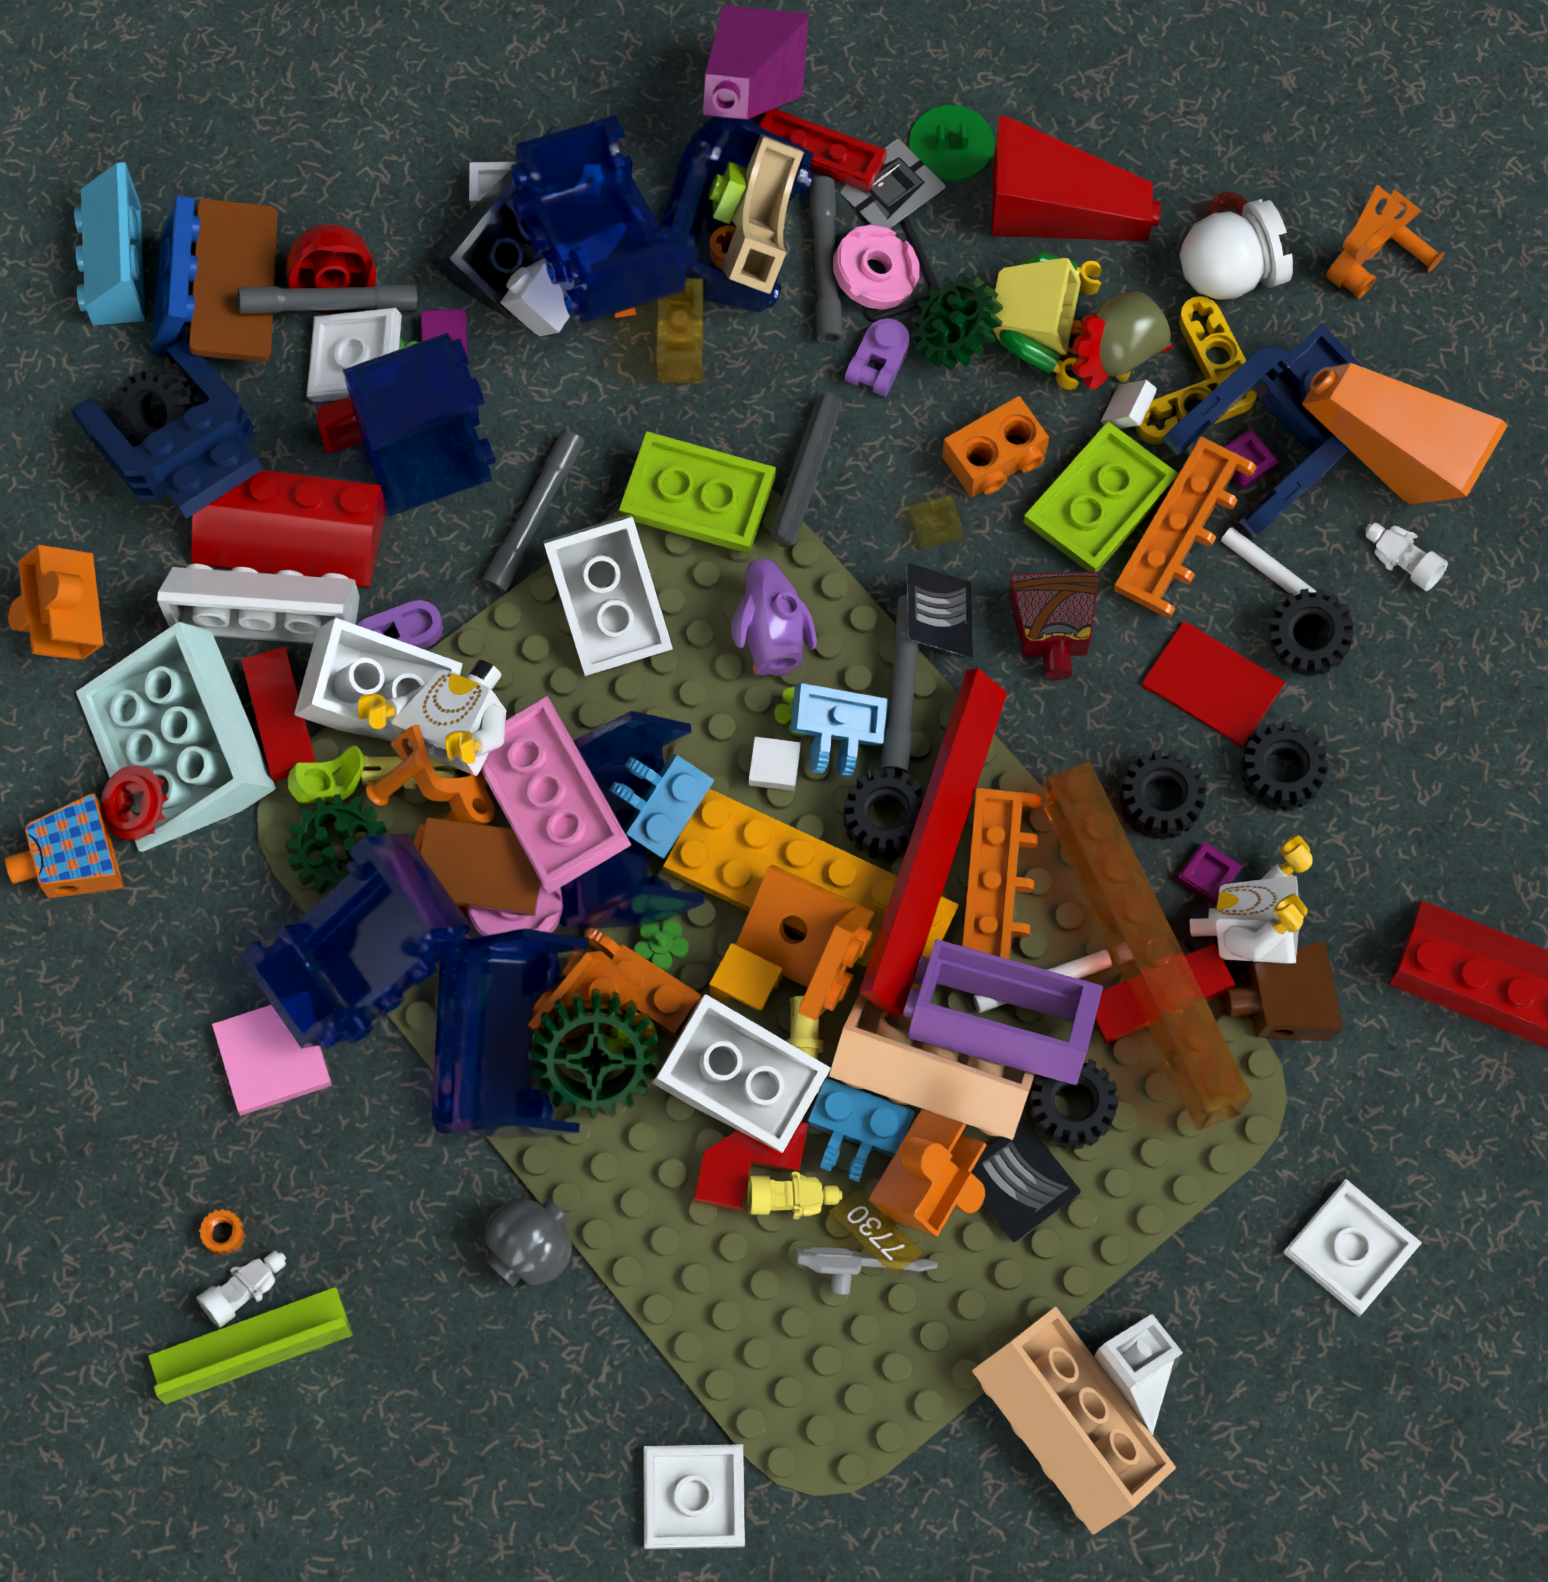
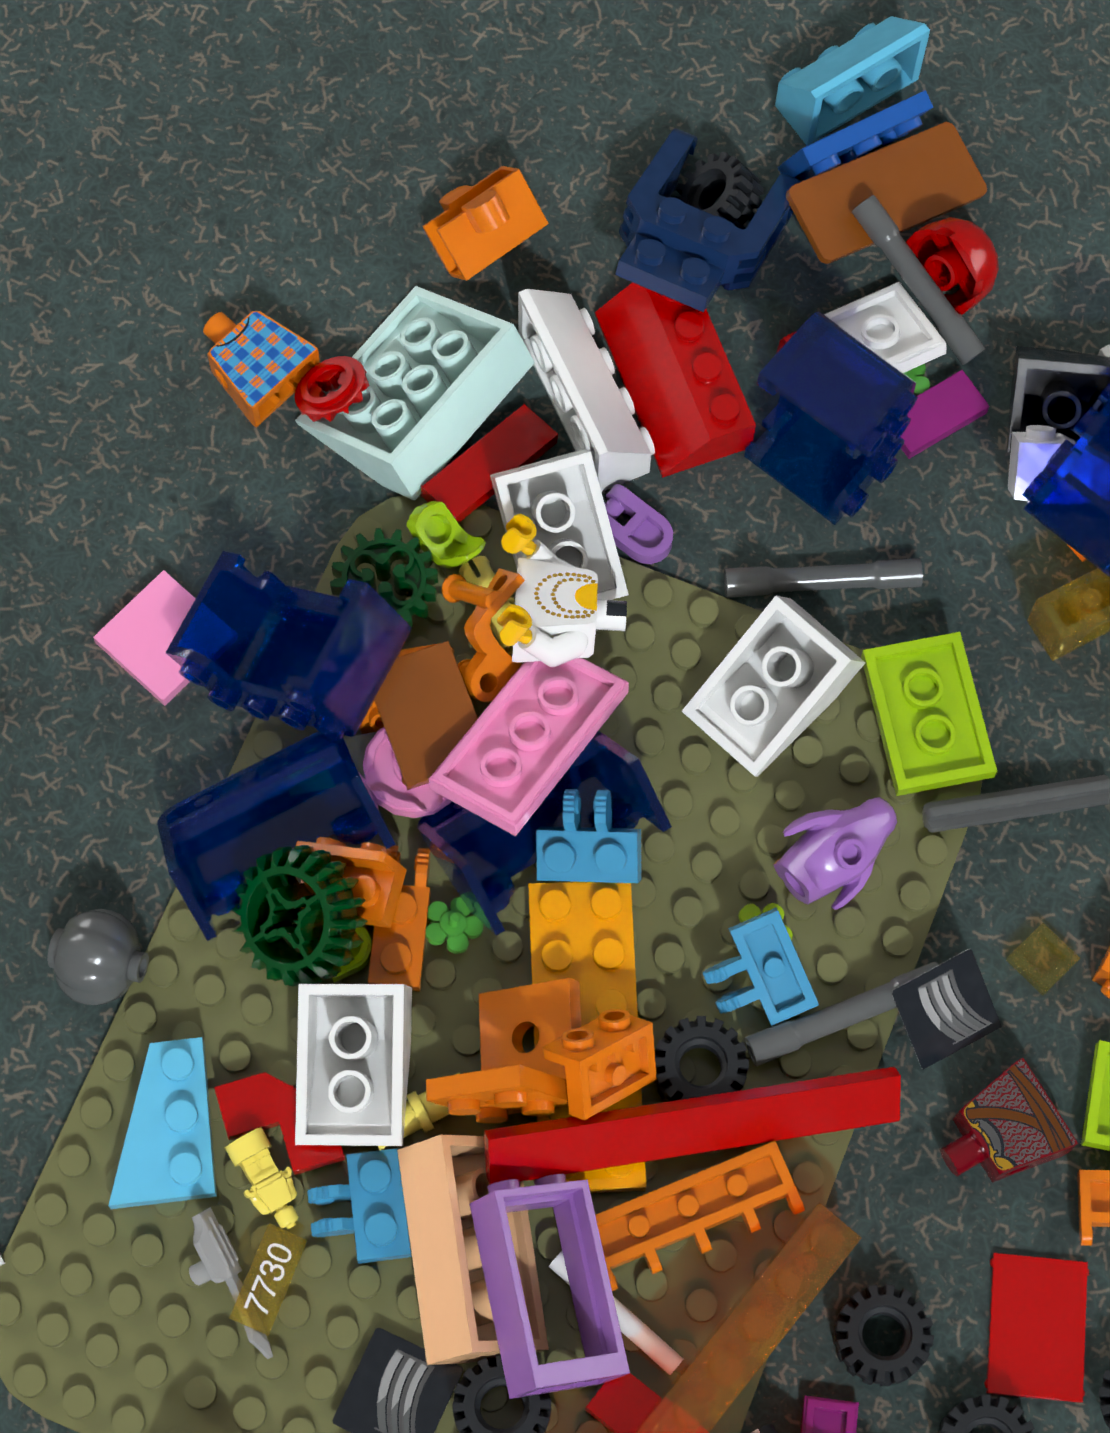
camera: 60 degrees right, 0 degrees up
(708, 1252) = (169, 1130): none -> medium azure wing
(744, 978) = (452, 1018): light orange panel -> none
(774, 763) = (693, 933): white tile -> none
(850, 871) = (604, 1060): none -> orange bracket
(931, 1175) = (348, 1302): orange piece -> none

